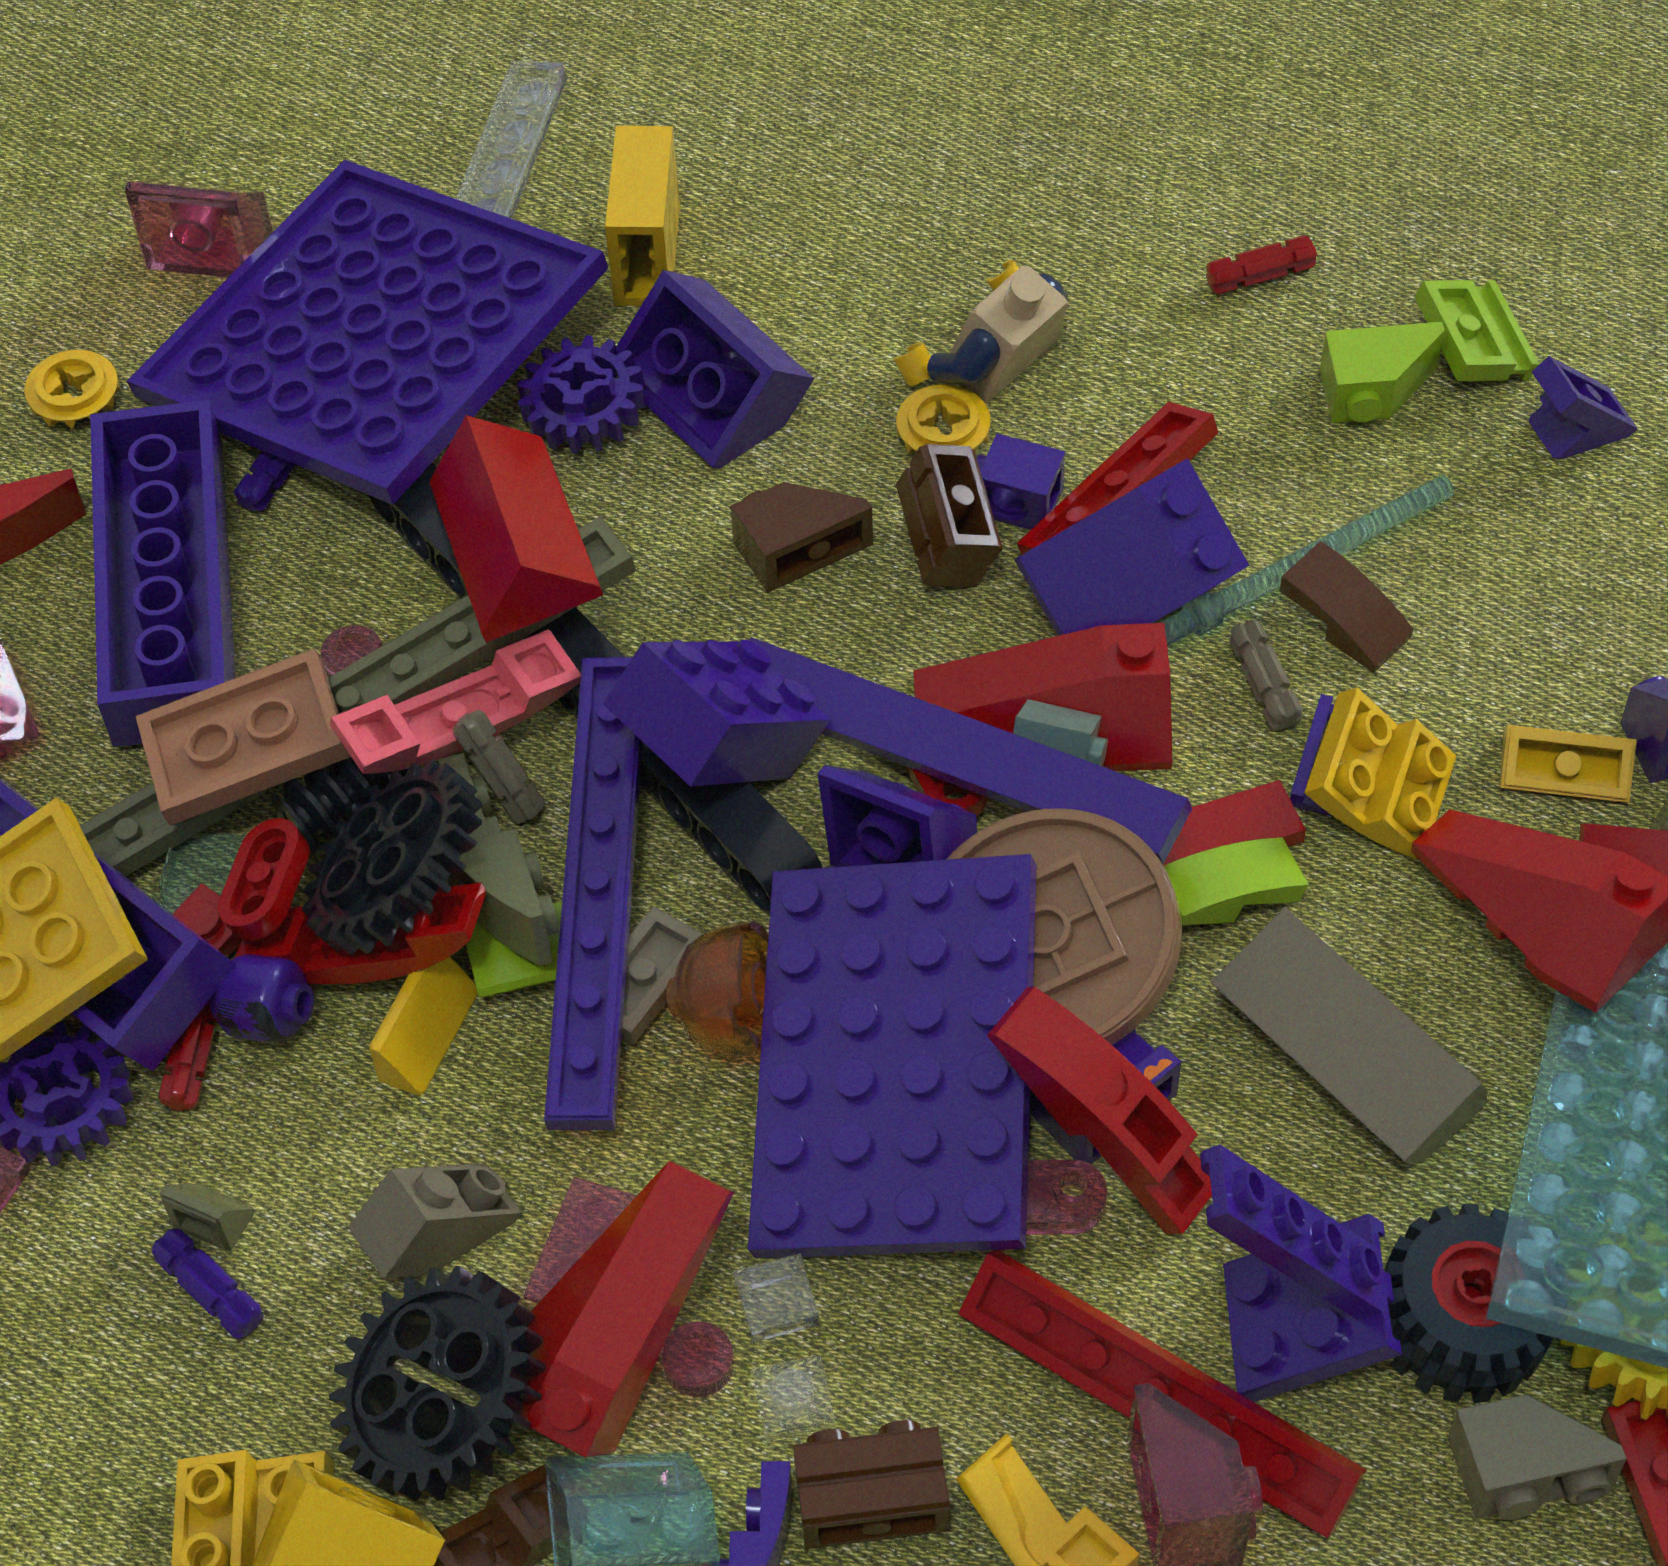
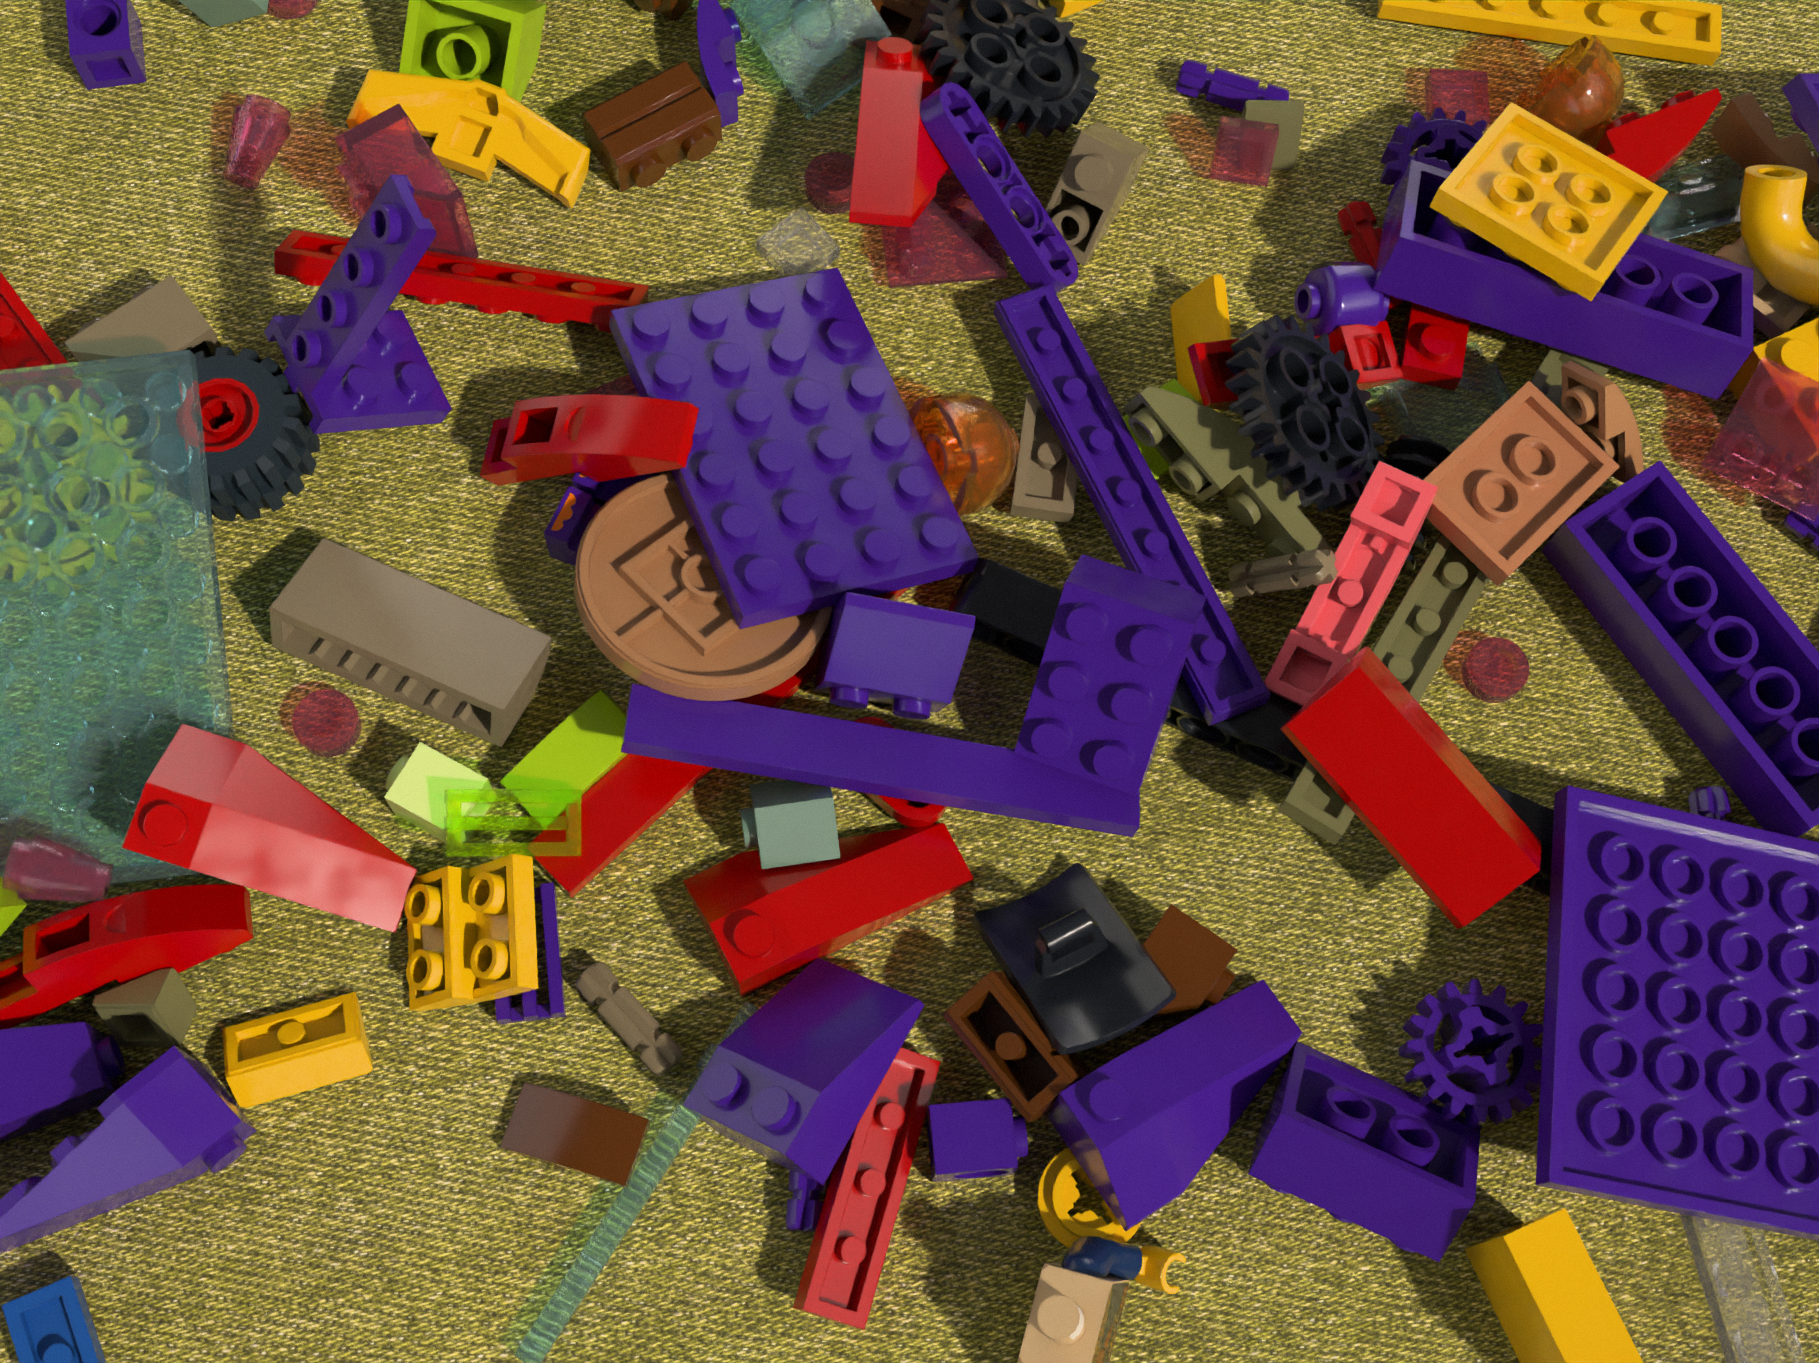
camera: 145 degrees right, 15 degrees up
(120, 768) = (1604, 416): none -> medium nougat slope
(248, 1194) = (1244, 151): none -> clear pink tile
(263, 879) = (1410, 383): red plate -> none
(531, 1169) = (964, 135): none -> dark purple beam
(793, 1399) = (746, 181): clear plate -> none
(841, 449) = (1167, 1104): none -> dark purple wedge
(870, 554) = (1075, 961): none -> black shield
(1311, 823) = (455, 822): none -> clear neon green tile
(1369, 894) = (418, 788): none -> yellowish green brick
(1455, 1014) = (327, 723): none -> clear pink tile

